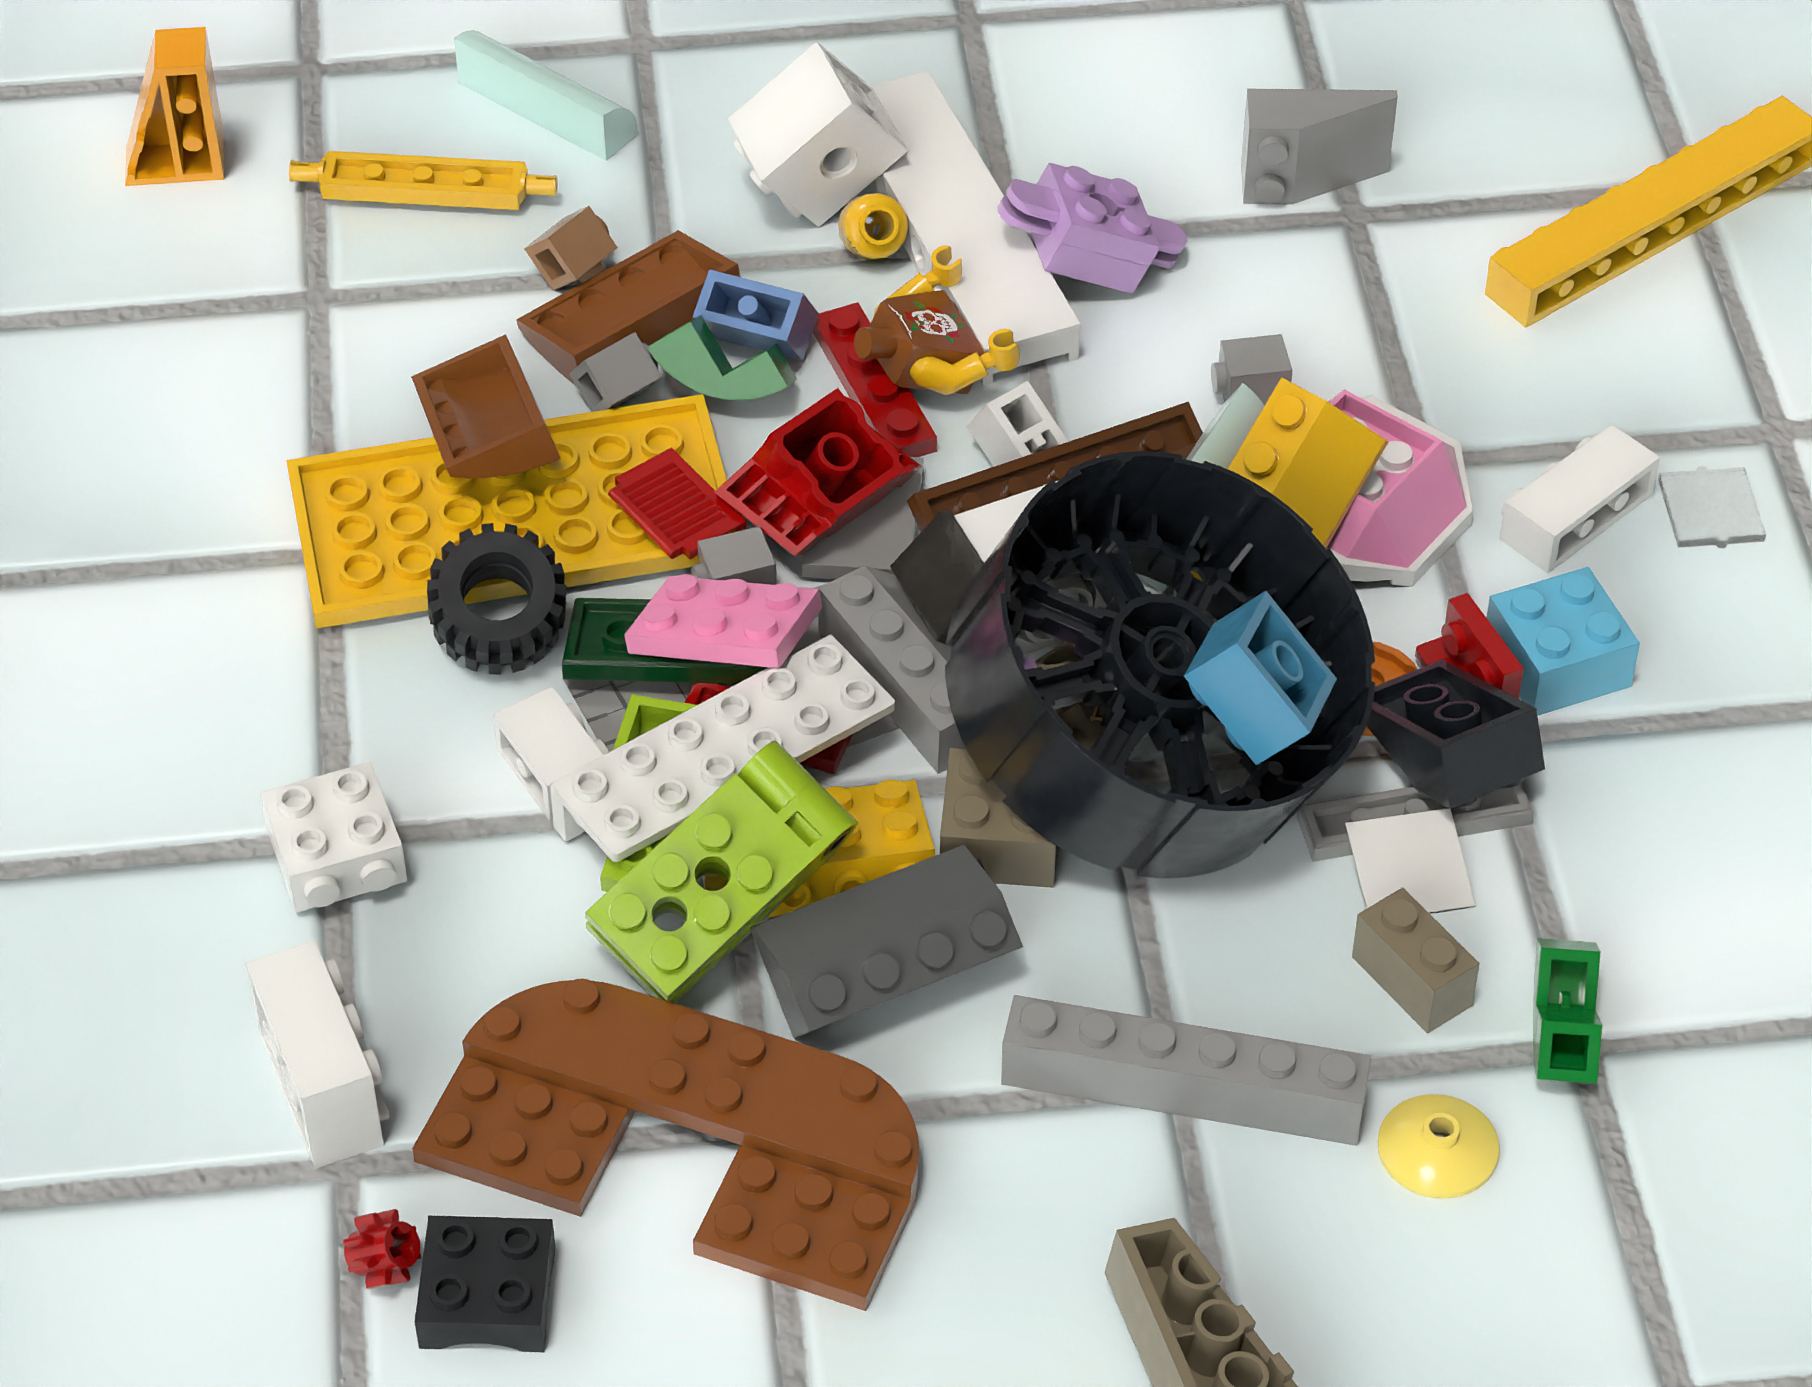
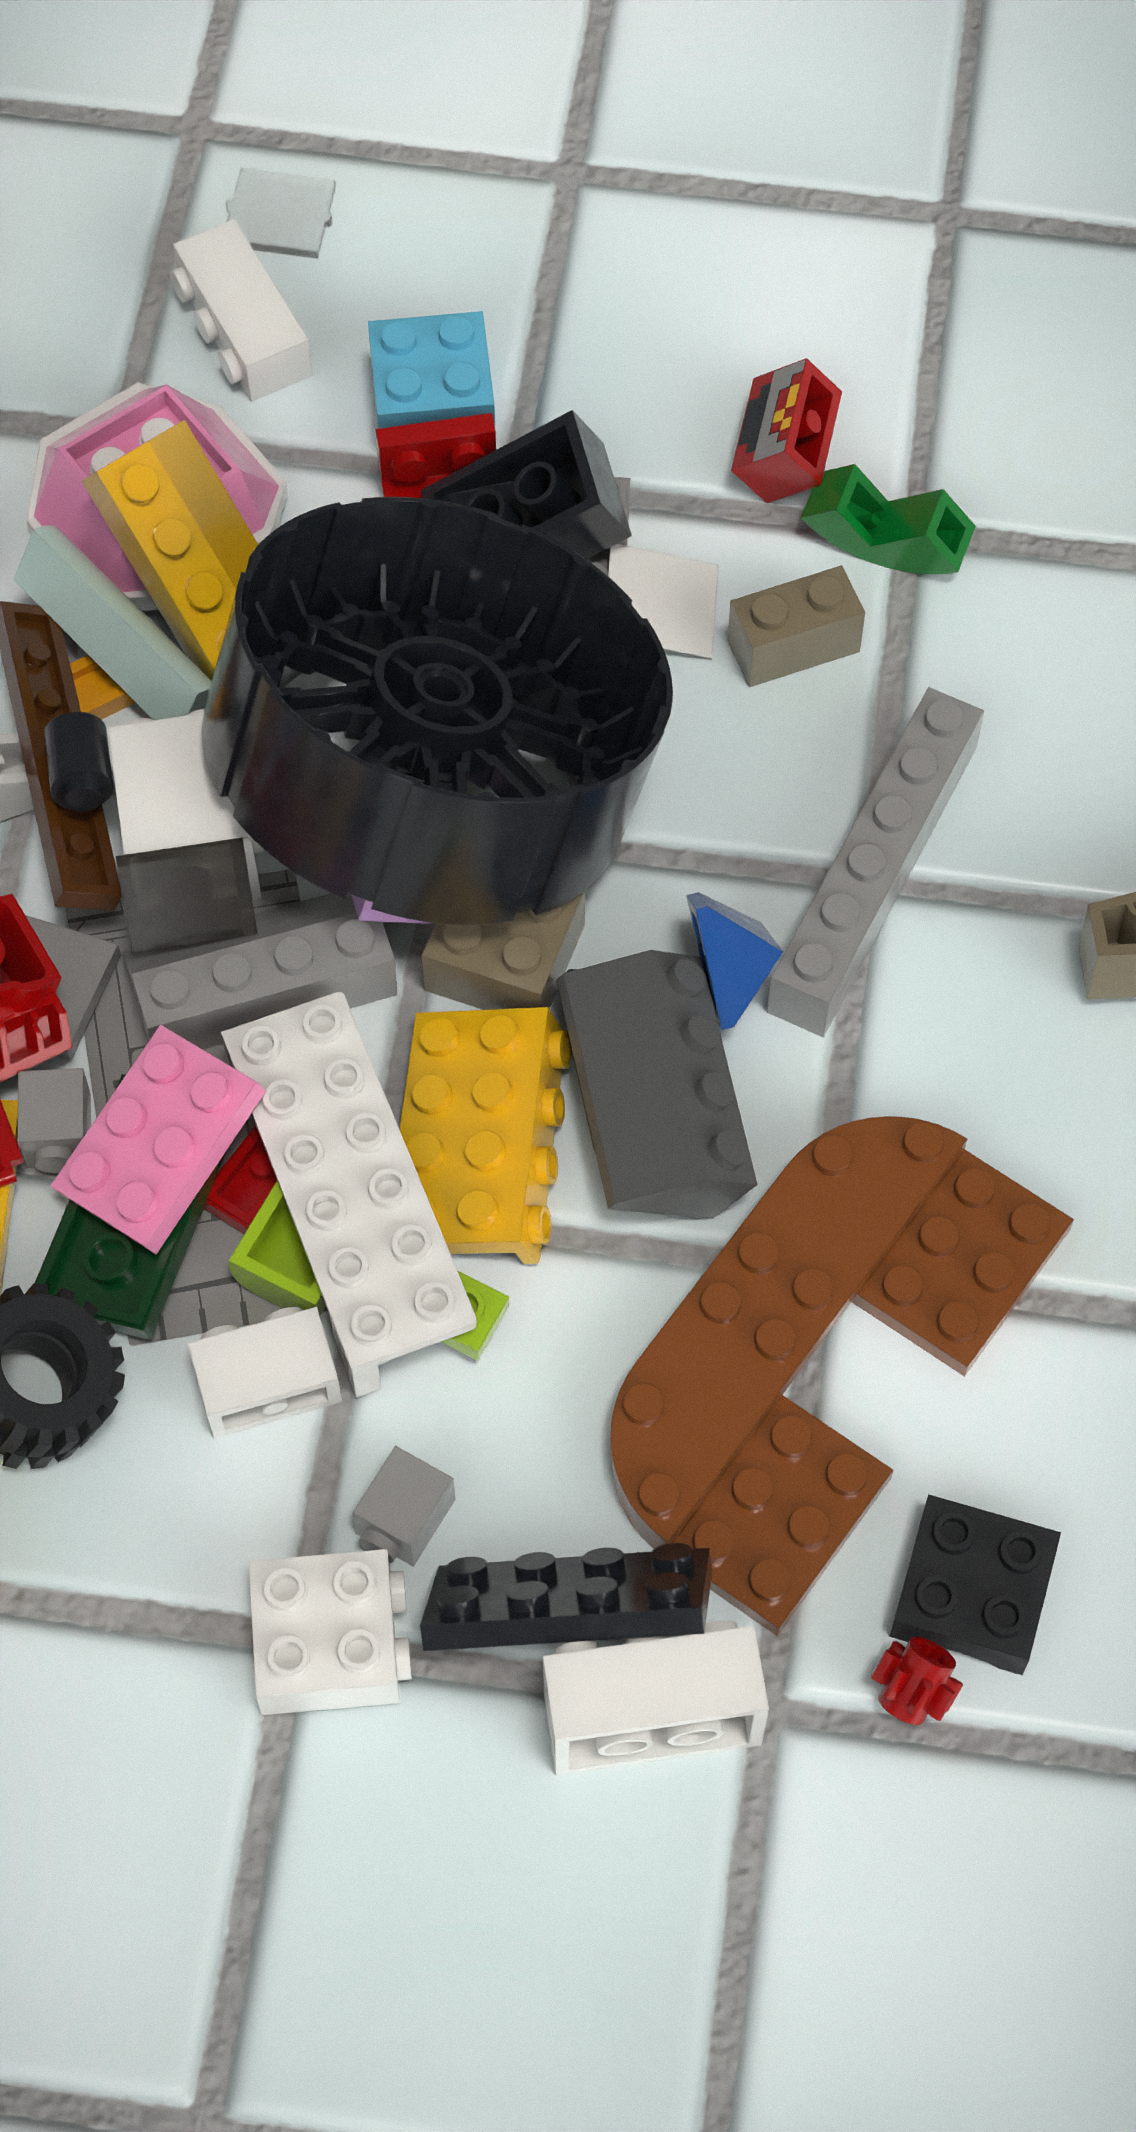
camera: 75 degrees left, 15 degrees up
(387, 974) = (568, 1598): none -> black plate
(456, 868) = (403, 1506): none -> light grey brick
(756, 832) = (544, 1216): lime hinge -> none
(1033, 467) = (78, 761): none -> black brick
(1038, 960) = (734, 954): none -> blue slope
(1260, 678) = (525, 609): dark azure brick -> none
(1433, 1163) = (1008, 699): light yellow dish -> none
(1628, 905) = (786, 431): none -> red brick

